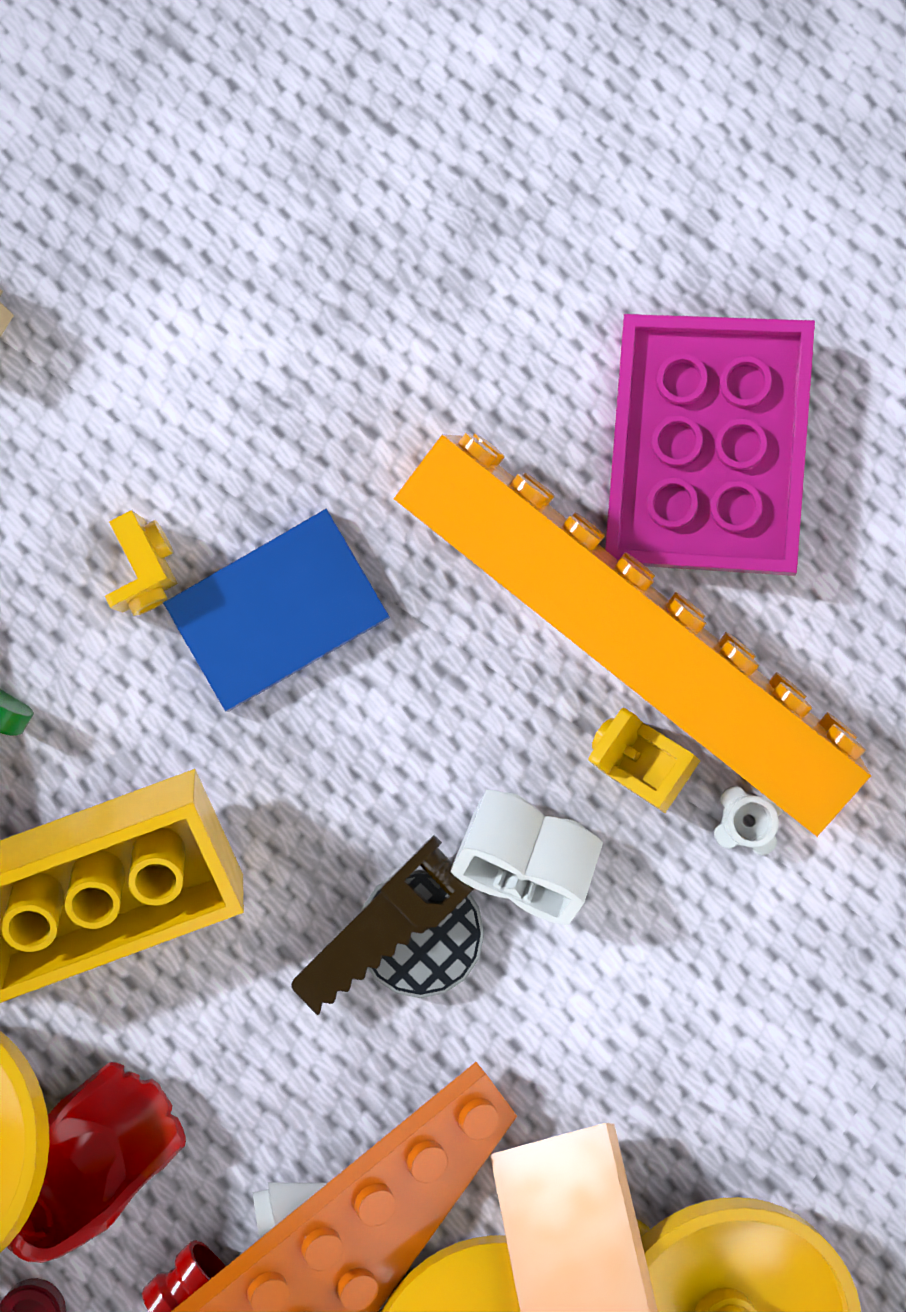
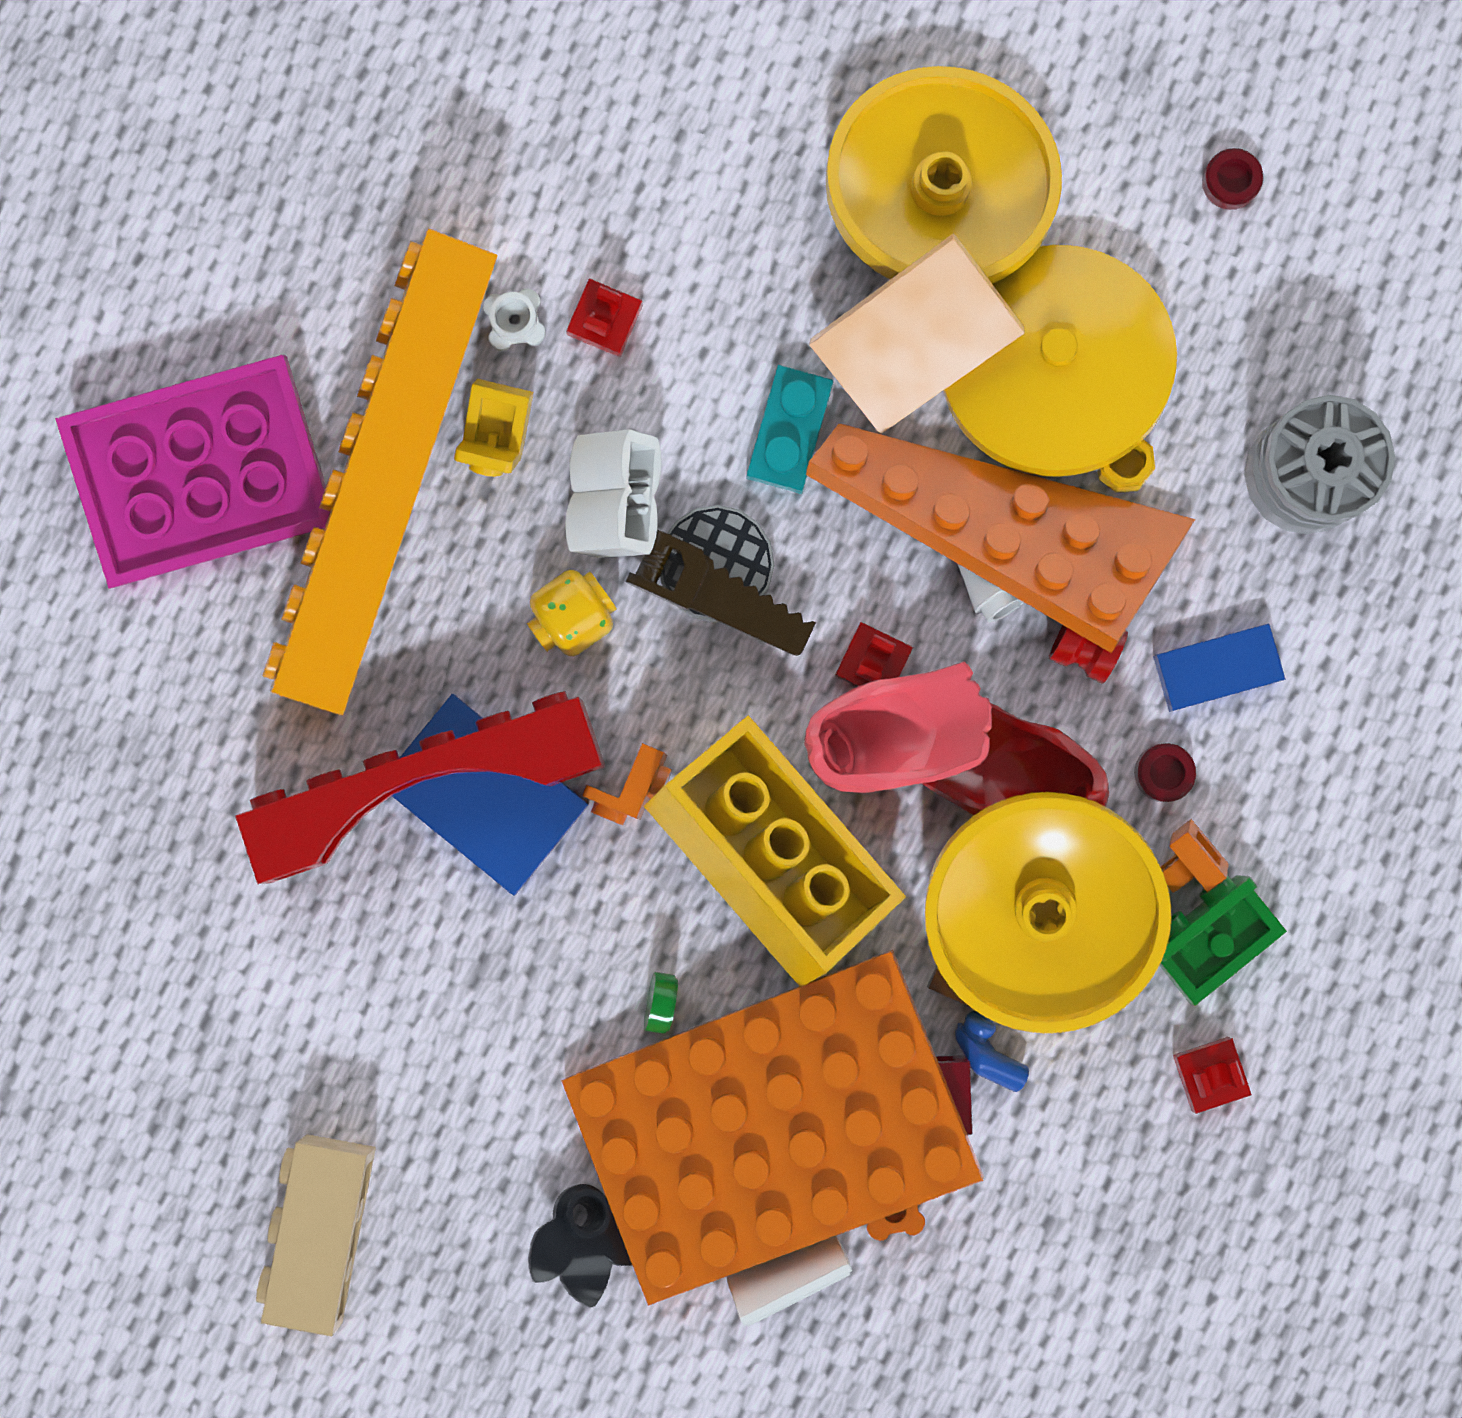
camera: 110 degrees left, 0 degrees up
(146, 551) = (471, 926): yellow bracket -> none
(166, 1065) = (900, 731): none -> coral hair
(224, 778) = (643, 782): none -> orange bracket
(260, 1056) = (872, 657): none -> red tile
(294, 684) = (306, 829): none -> red arch
(424, 767) = (571, 613): none -> yellow head
(530, 1062) = (789, 429): none -> teal plate
(716, 913) = (604, 317): none -> red tile

